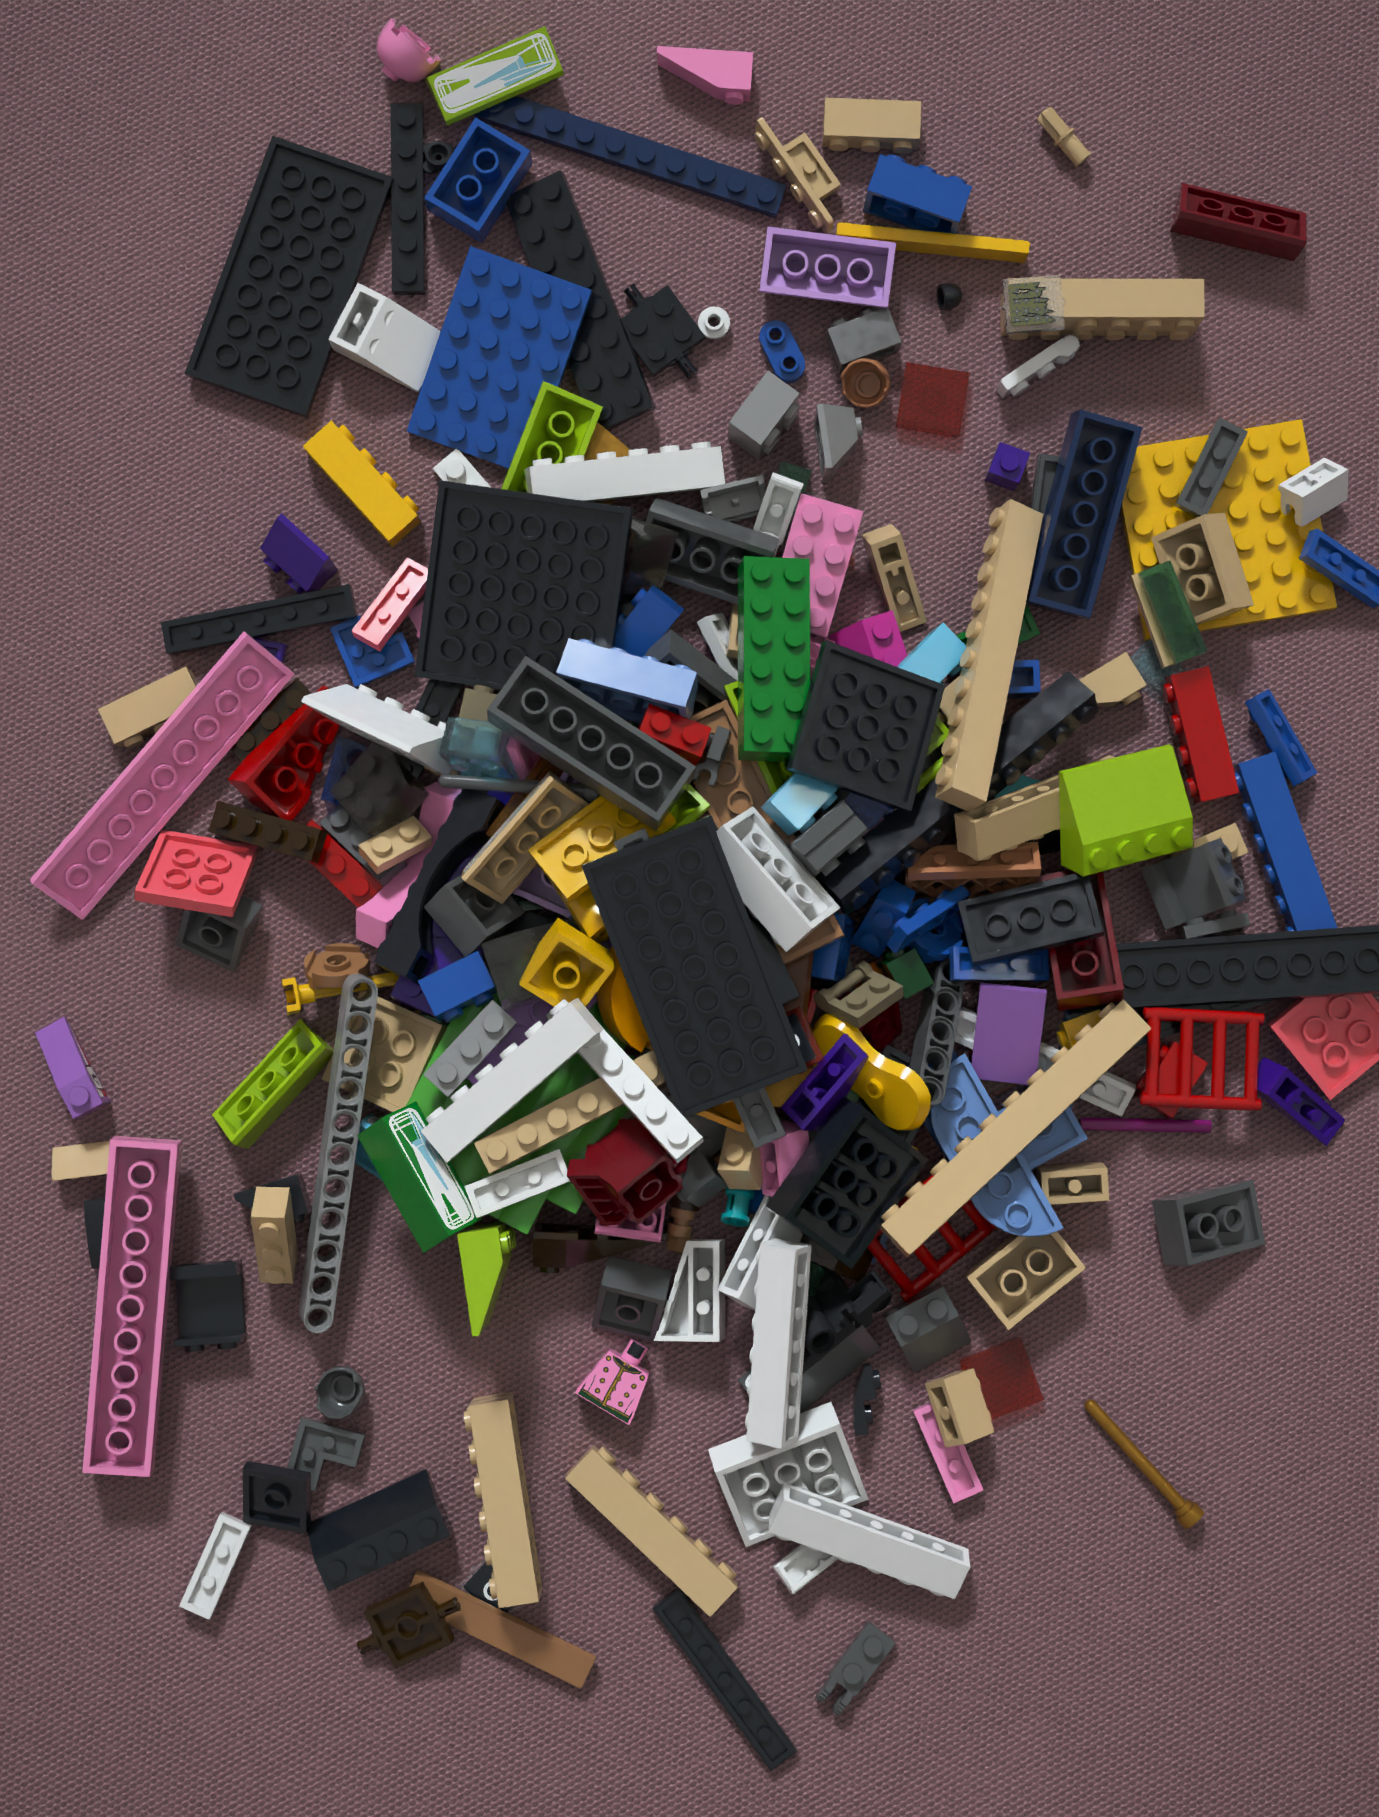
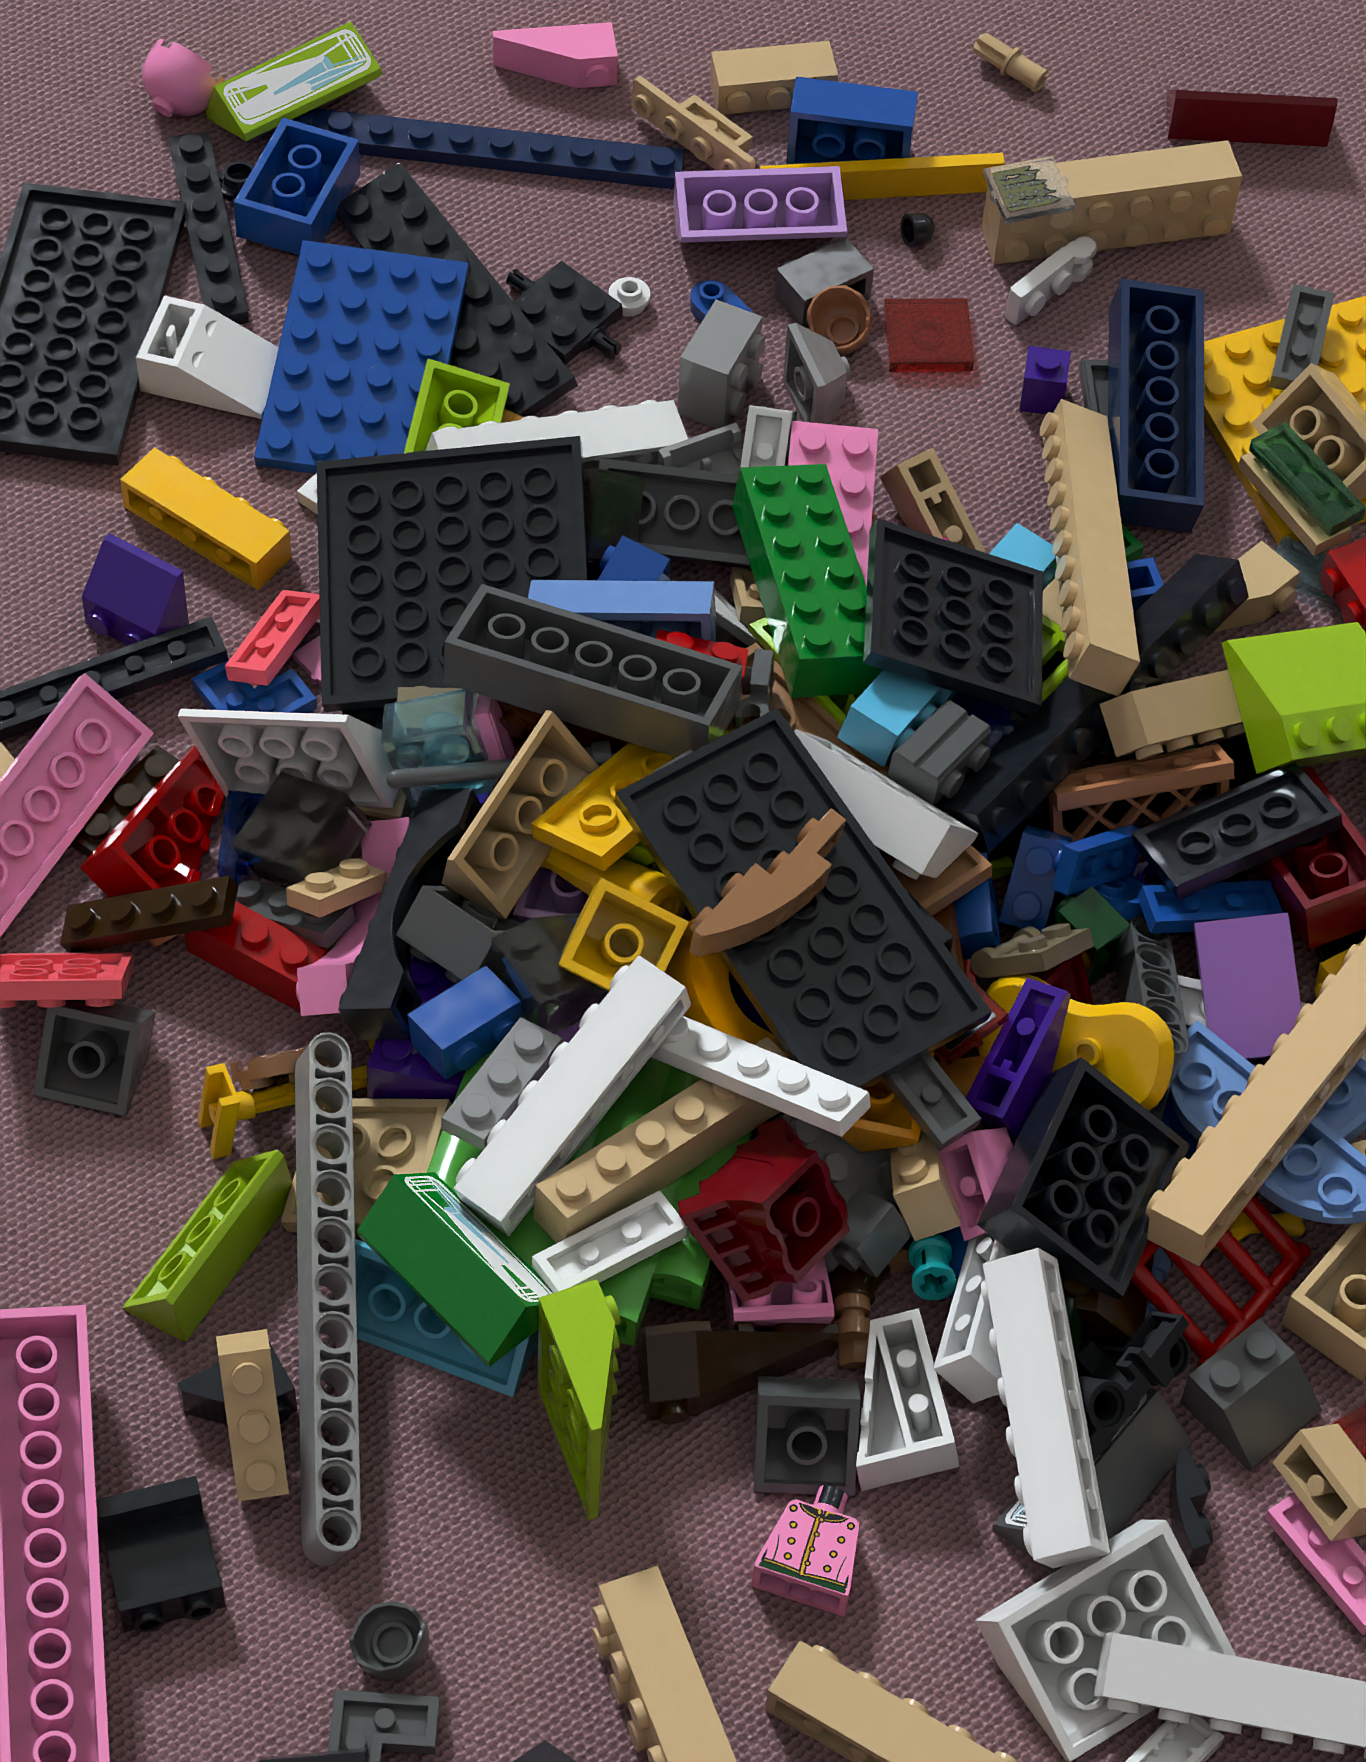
camera: 15 degrees left, 30 degrees down
(660, 975) = (768, 898): none -> medium nougat slope

